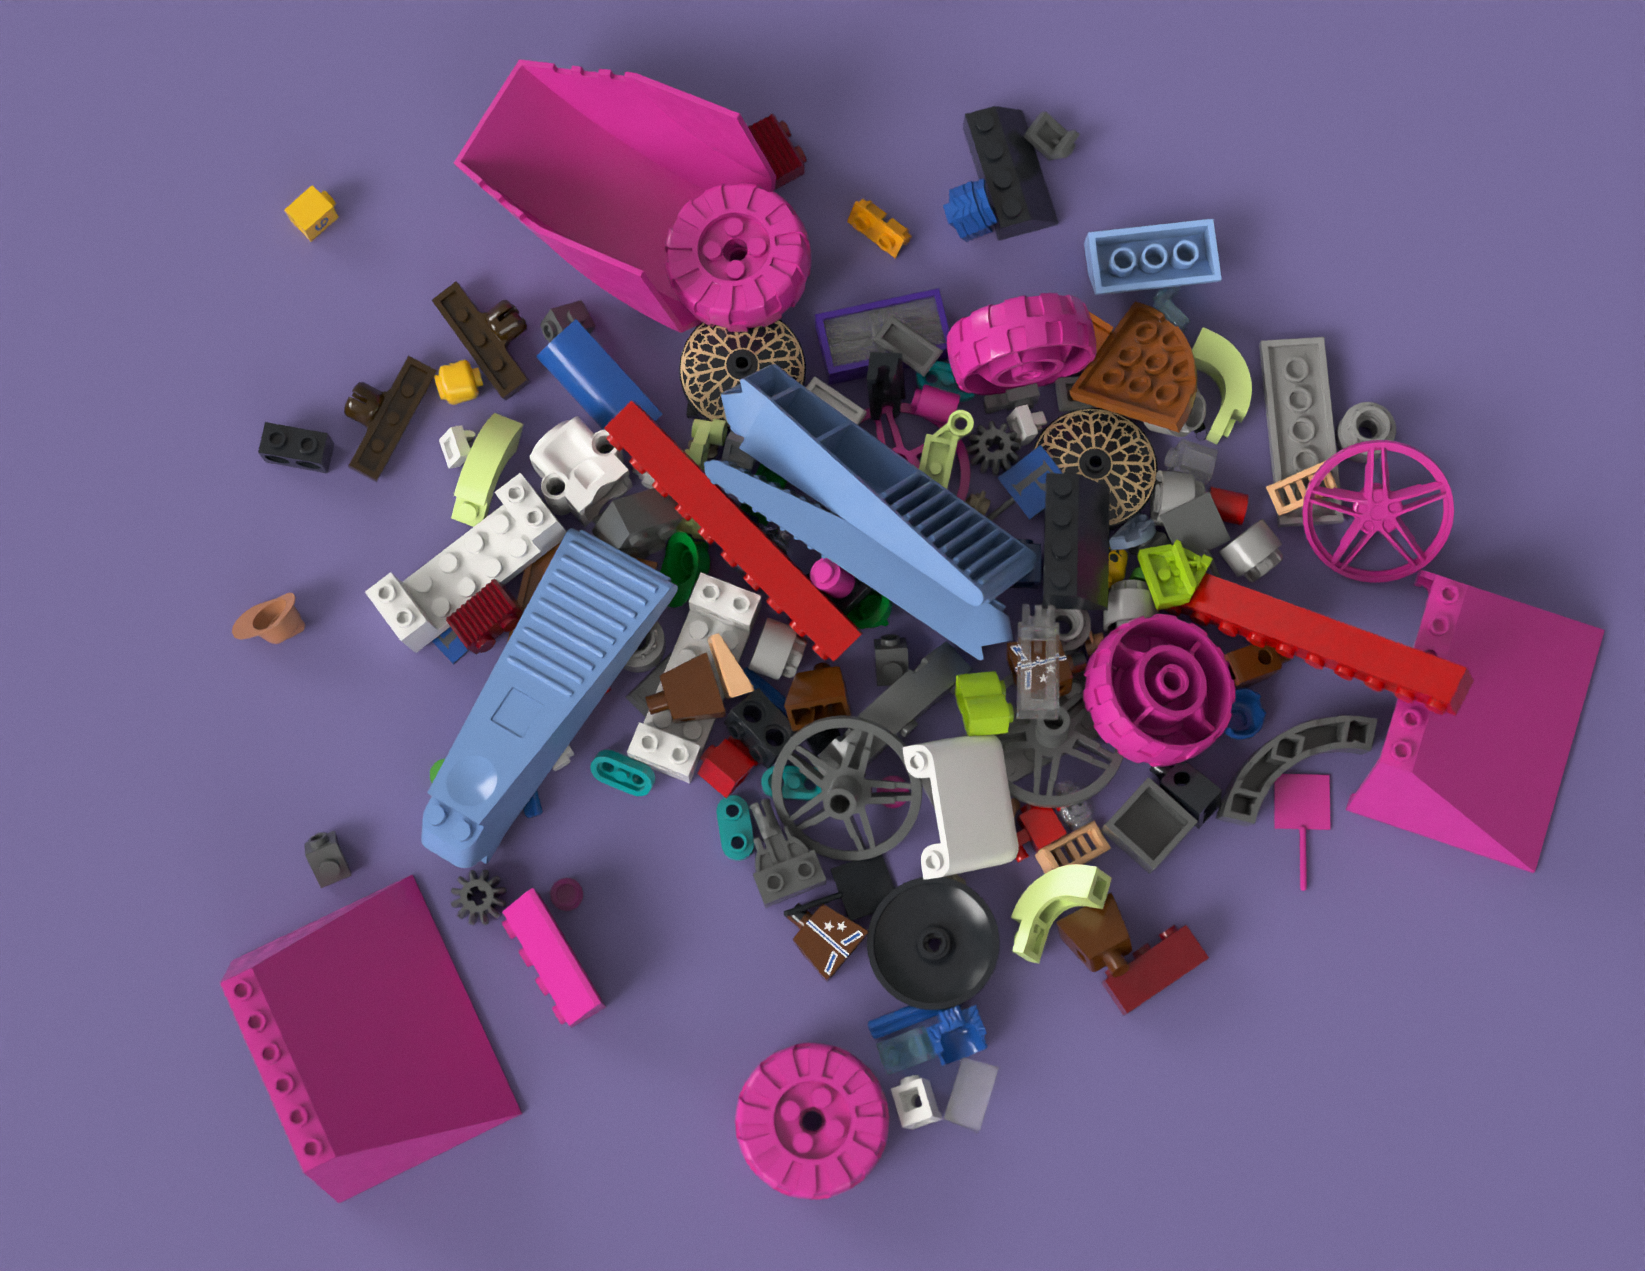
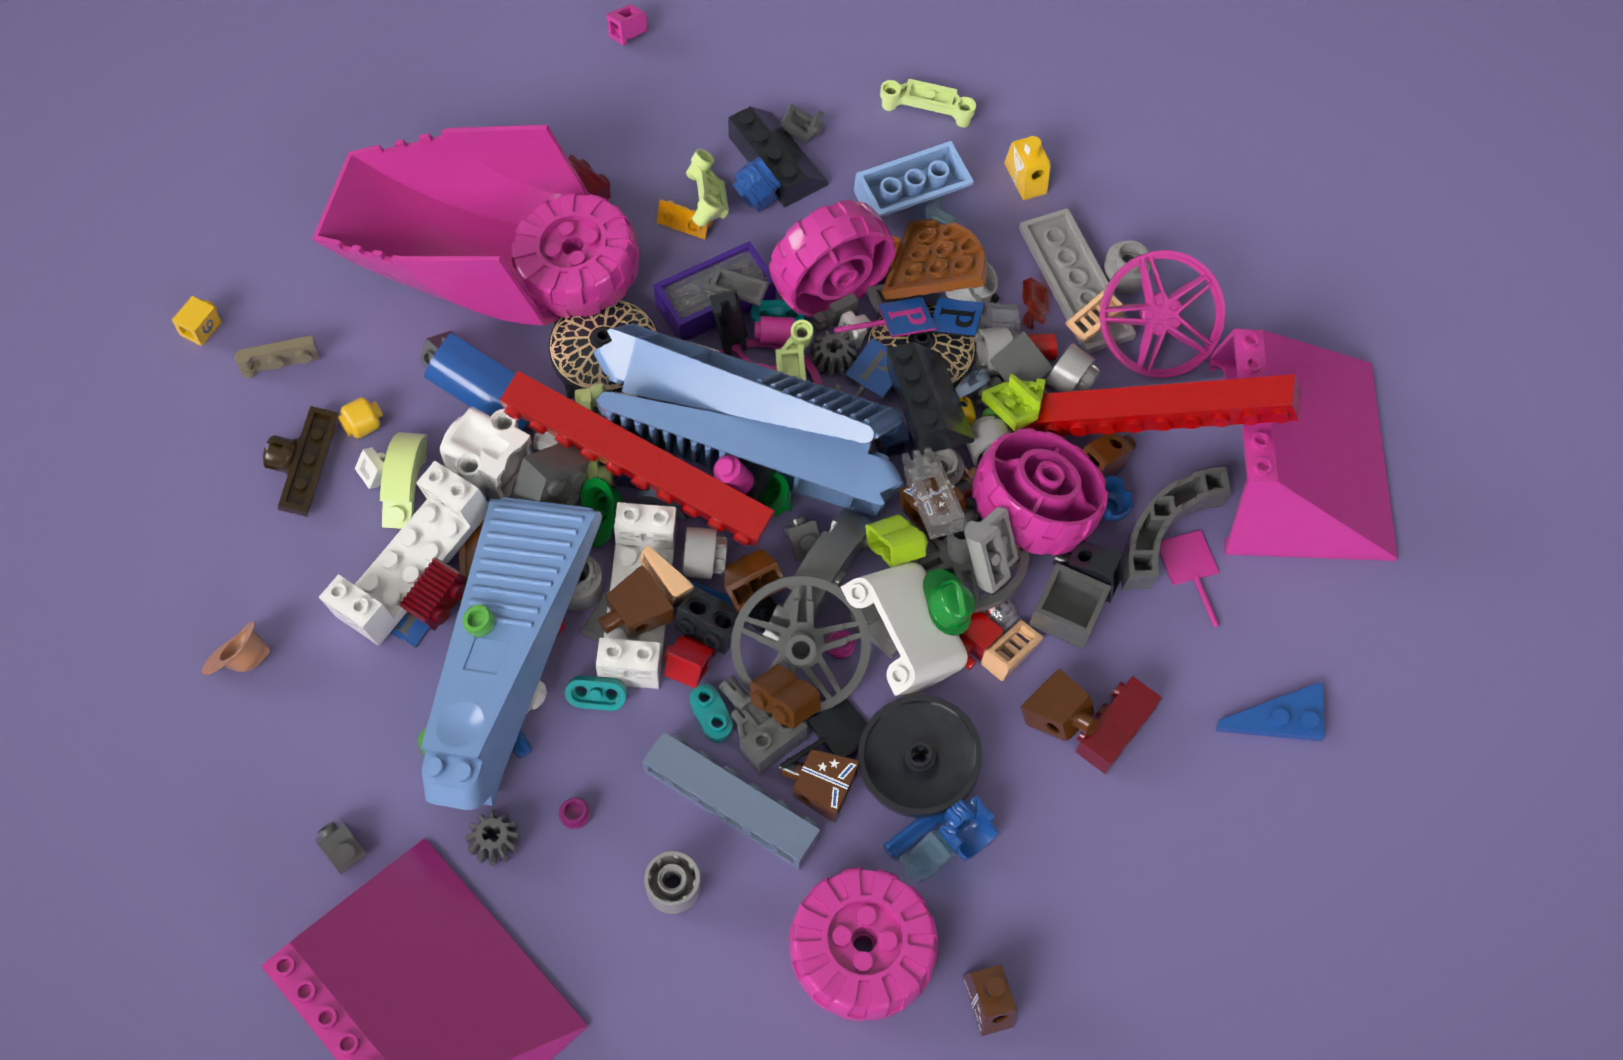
camera: 20 degrees left, 15 degrees down
(296, 447) = (226, 504): black brick -> none
(387, 281) = (276, 355): none -> dark tan plate
(486, 336) = (376, 376): dark brown plate -> none
(519, 672) = (478, 620): none -> bright green tile
(553, 959) = (578, 869): dark pink slope -> none
(641, 982) = (672, 865): none -> light grey piece
(727, 929) = (732, 799): none -> sand blue brick
(793, 784) = (751, 658): teal plate -> none
(810, 843) = (785, 696): none -> reddish brown brick
(904, 1099) = (961, 910): white brick -> none
(917, 204) = (711, 189): none -> yellowish green plate
(920, 1211) = (990, 999): none -> reddish brown torso
(971, 1094) = (998, 878): clear piece -> none
(1013, 790) = (948, 602): none -> green piece
(1050, 897) = (1009, 685): yellowish green arch -> none
(1077, 750) = (991, 549): none -> light grey brick
(1081, 431) = (900, 317): none -> blue piece
(1138, 446) = (957, 317): none -> blue piece
(1213, 141) = (928, 97): none -> yellowish green plate
(1230, 372) = (1006, 254): yellowish green arch -> none
(1245, 444) = (1036, 299): none -> clear red plate
(1296, 267) = (1025, 160): none -> yellow torso
(1344, 1013) = (1289, 716): none -> blue wing

